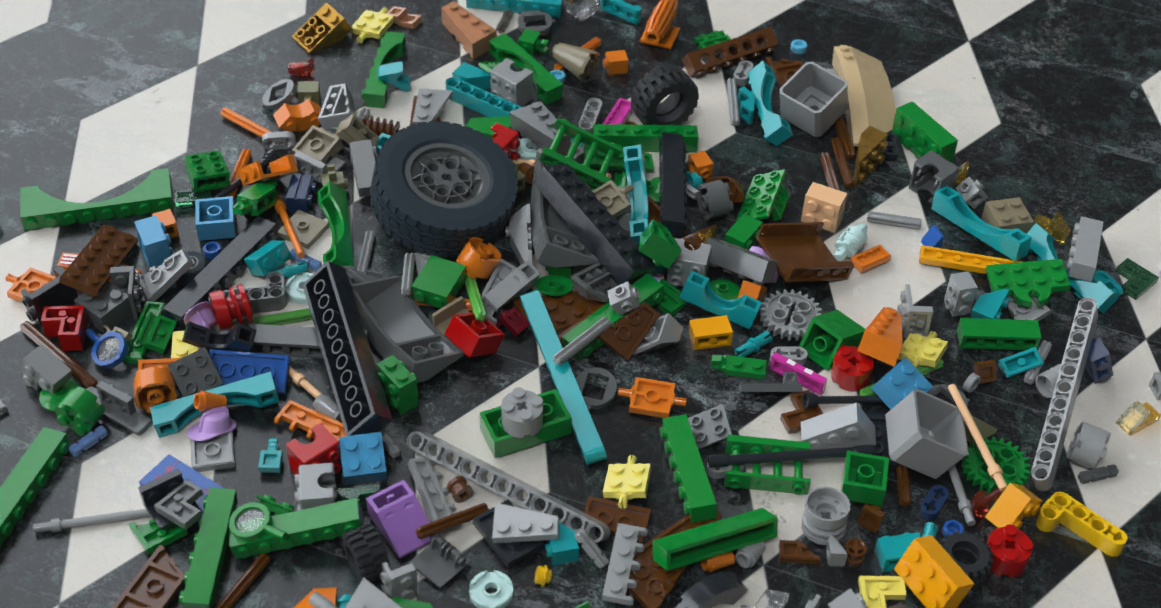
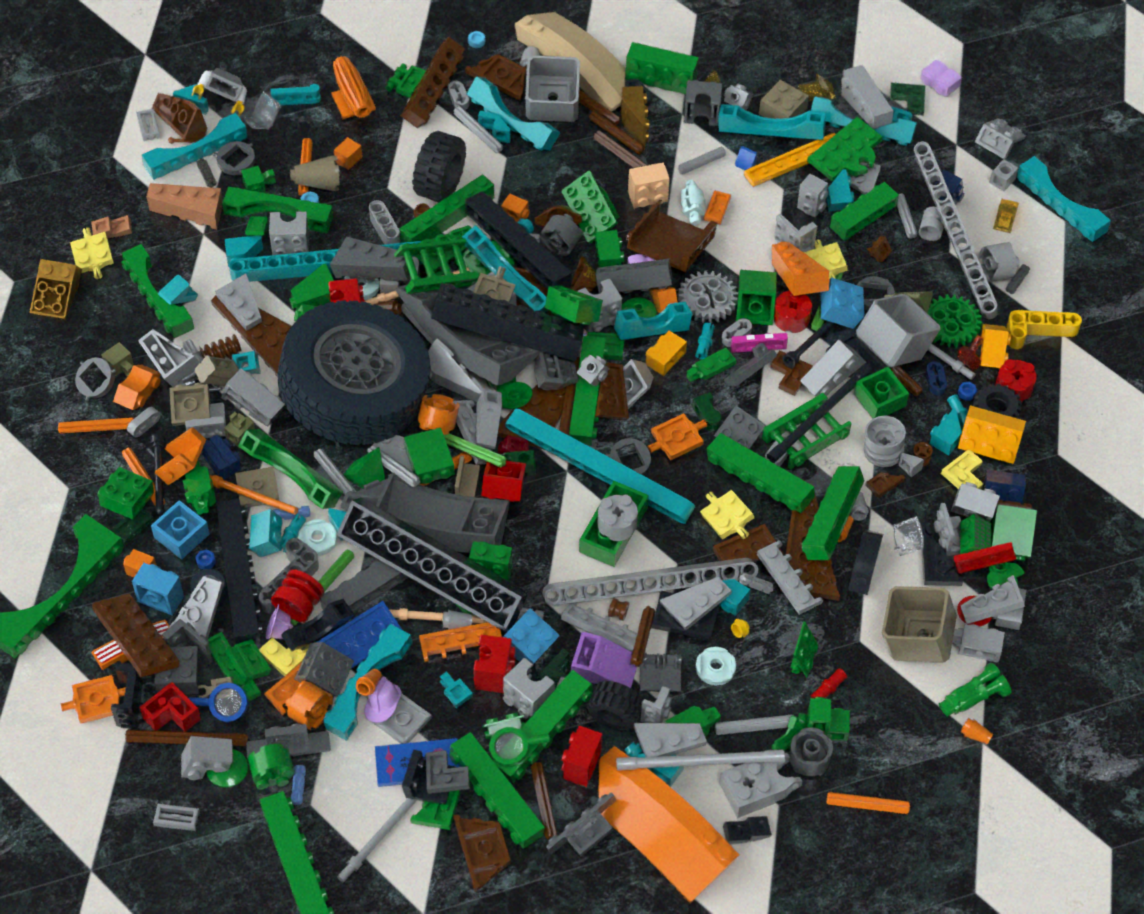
camera: 40 degrees left, 10 degrees up
(299, 573) = (582, 755): none -> red brick
(301, 68) = (81, 339): clear red piece -> none
(390, 265) = (366, 469): none -> green slope
(513, 335) = (523, 457): none -> dark green leg
(581, 341) = (594, 428): light grey axle -> none
(619, 113) = (401, 204): dark pink plate -> none
(698, 390) = (704, 410): none -> dark green leg
(871, 518) = (911, 420): reddish brown tile -> none
(971, 383) = (880, 264): light grey tile -> none
(993, 469) = (965, 326): light nougat bar -> none
(1020, 362) = (898, 225): teal slope -> none

